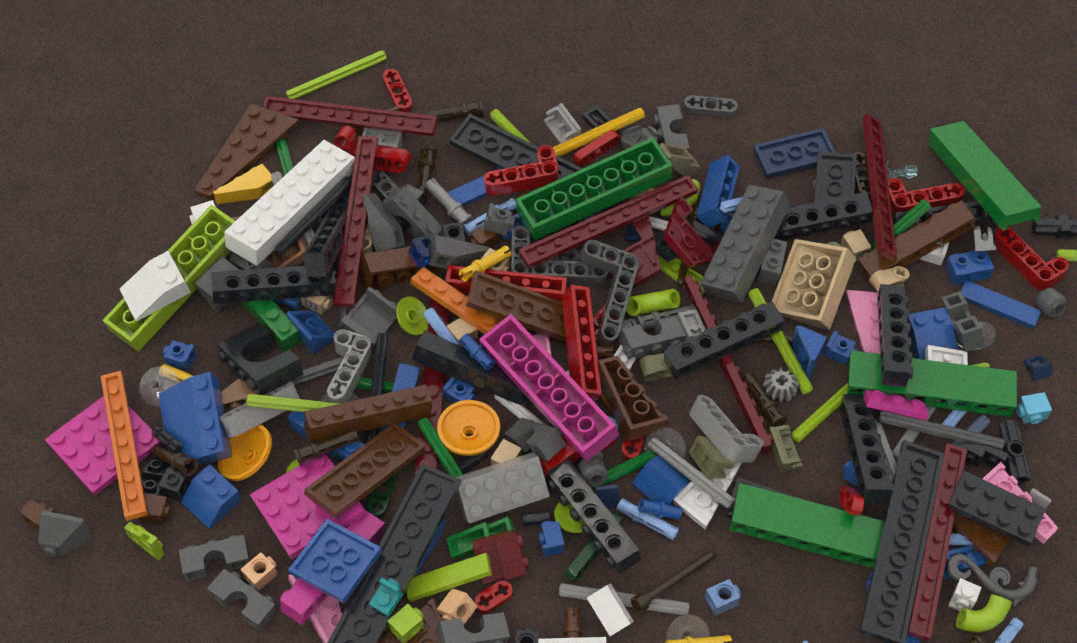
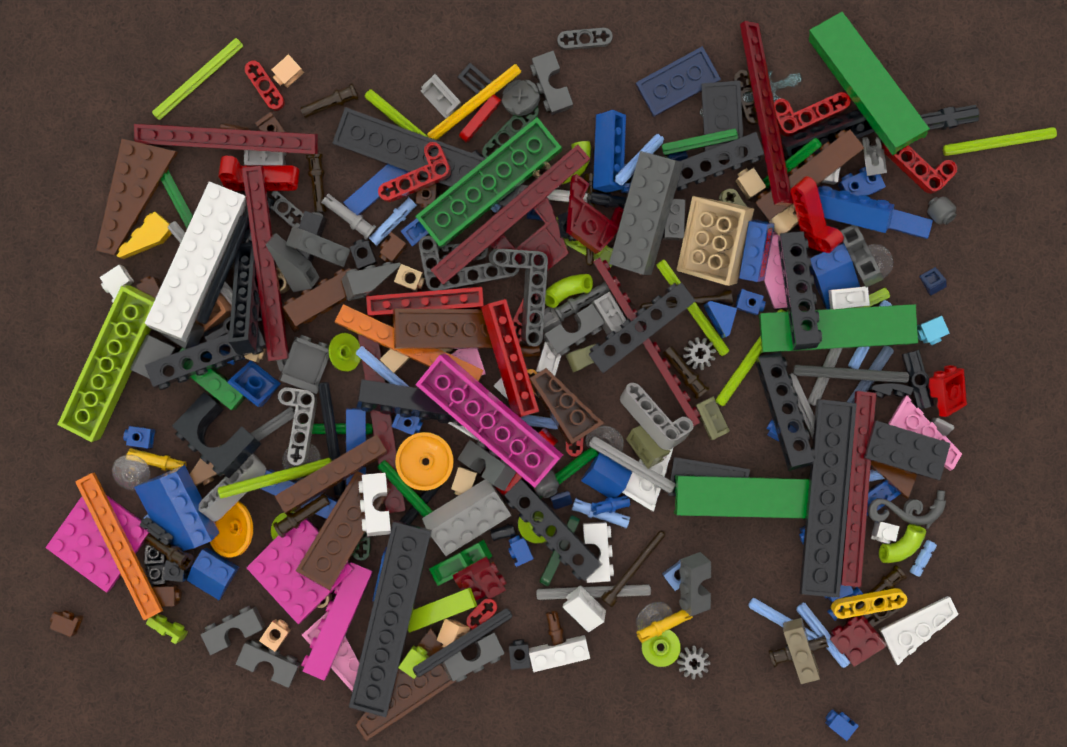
camera: 10 degrees left, 30 degrees up
(62, 533) = (92, 640): dark grey slope -> none
(154, 286) = (96, 386): white slope -> none
(335, 560) = (340, 627): blue plate -> none
(386, 596) = (392, 650): teal bracket -> none
(404, 461) = (373, 487): none -> white arch
(419, 251) = (338, 293): clear blue bracket -> none
(422, 81) = (287, 71): none -> light nougat brick
(464, 611) = (462, 642): none -> black axle
(477, 351) = (415, 392): blue pin -> none
(485, 263) = (395, 297): yellow pin -> none
(498, 220) = (398, 238): dark grey brick -> none
(637, 575) = (598, 534): none -> white arch
(680, 159) = (566, 124): dark tan slope -> none
(739, 583) = (693, 572): none -> dark grey arch
(797, 200) = (700, 141): none -> green axle
(851, 500) = (778, 467): red beam -> none
(854, 298) = (756, 250): none -> blue brick
(896, 404) = (807, 360): dark pink plate -> none
(914, 273) = (811, 217): none -> red beam
(956, 277) = (855, 209): none -> blue brick
(1048, 462) = (949, 389): none -> red plate

